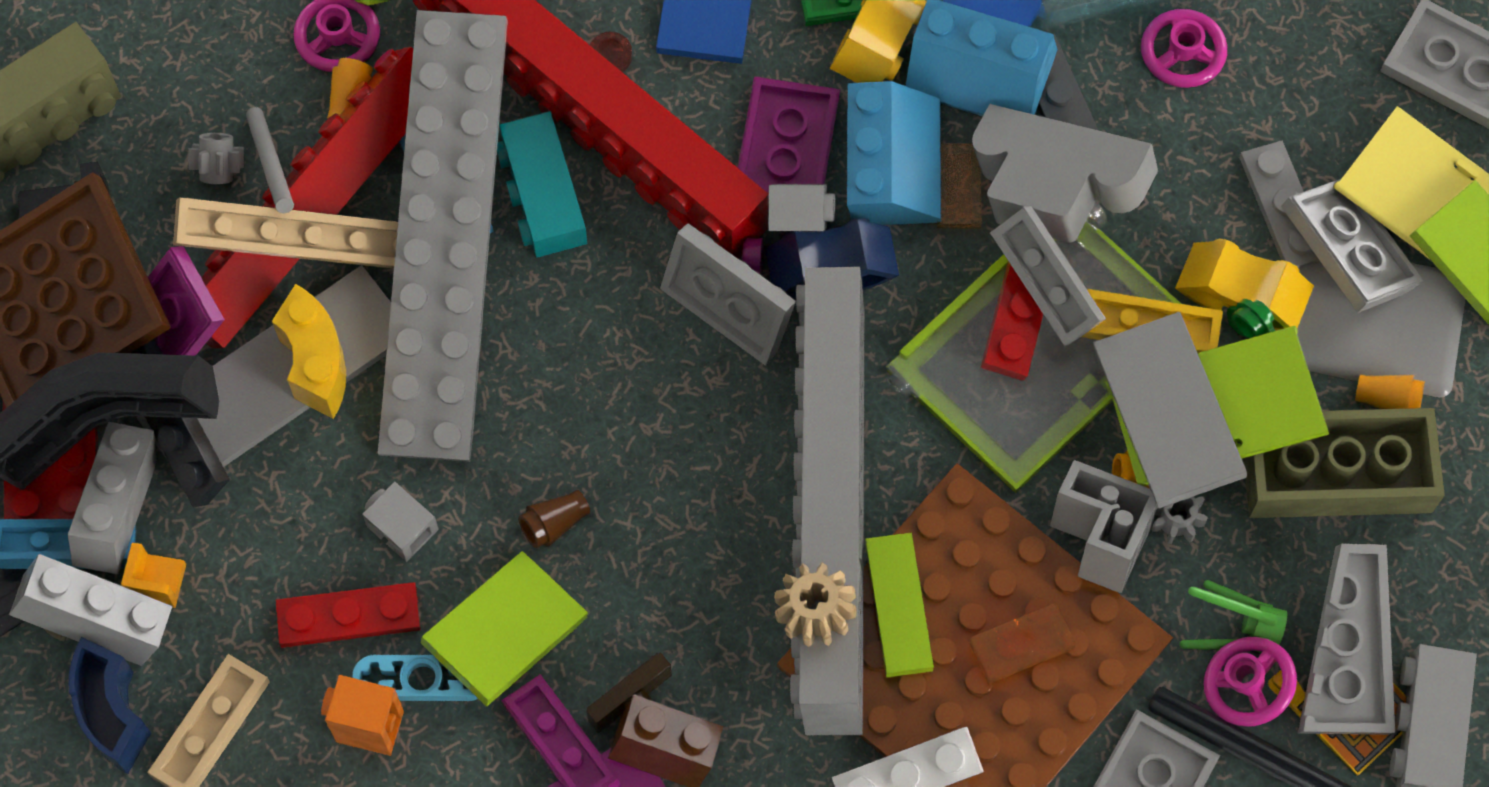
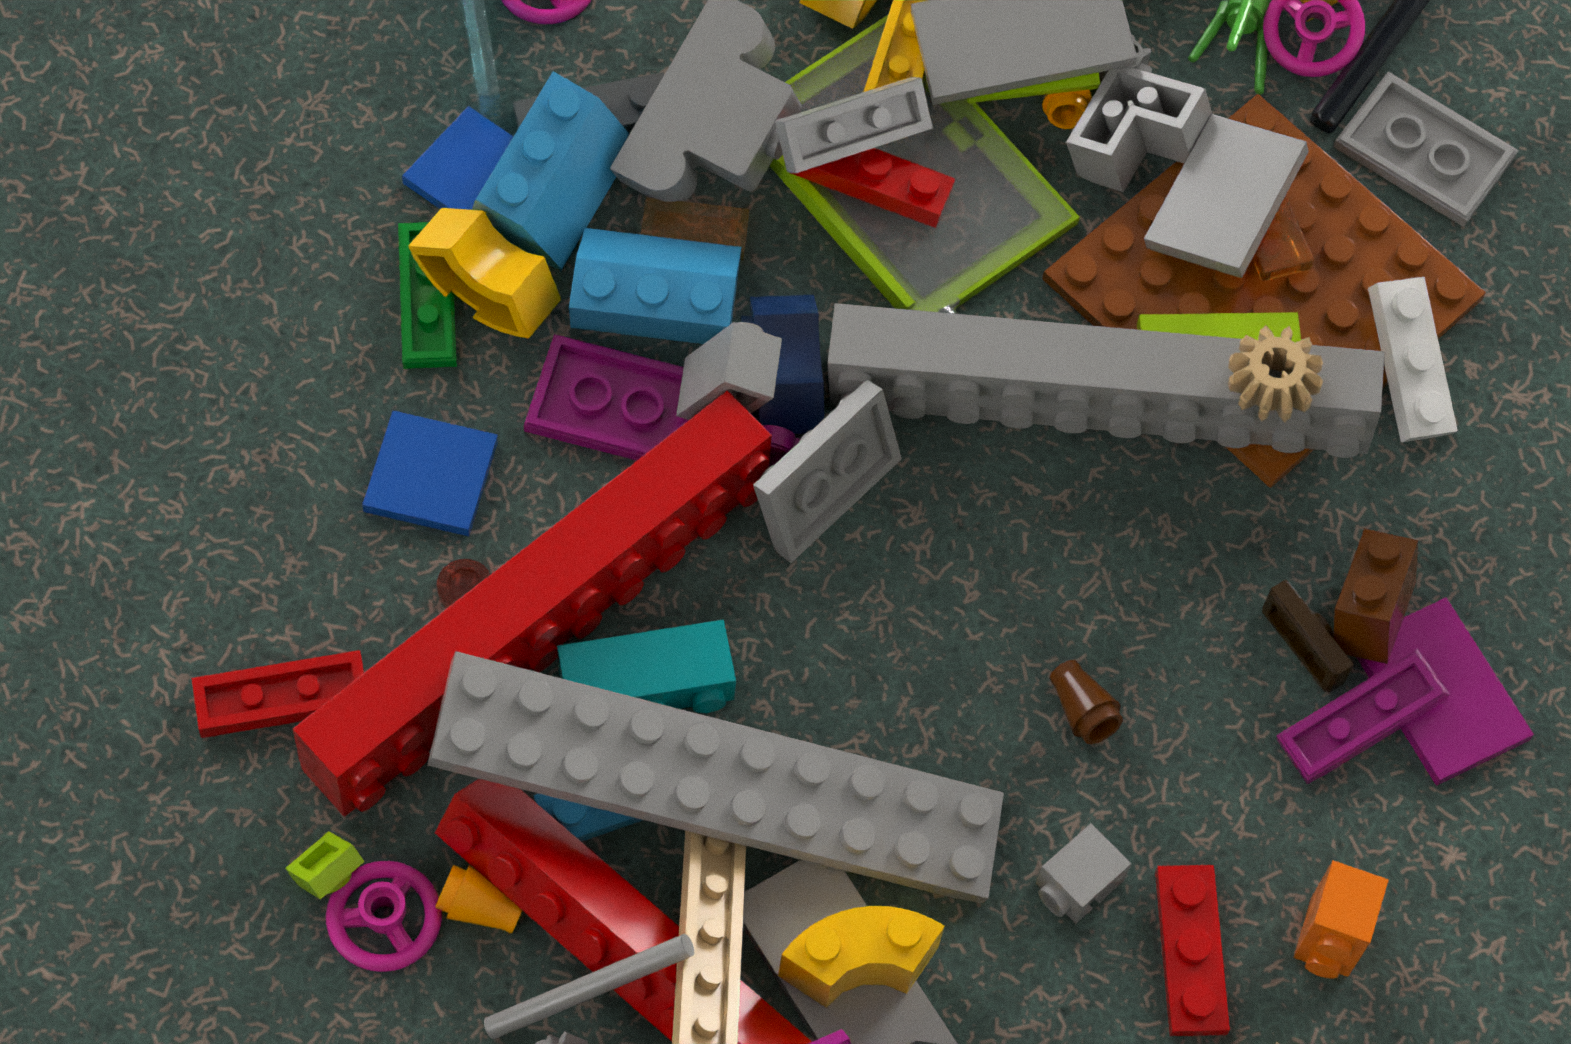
camera: 90 degrees left, 5 degrees down
(409, 663) = (1258, 907): medium azure beam -> none
(504, 628) = (1224, 766): lime tile -> none
(1039, 597) = (1226, 195): none -> light grey tile

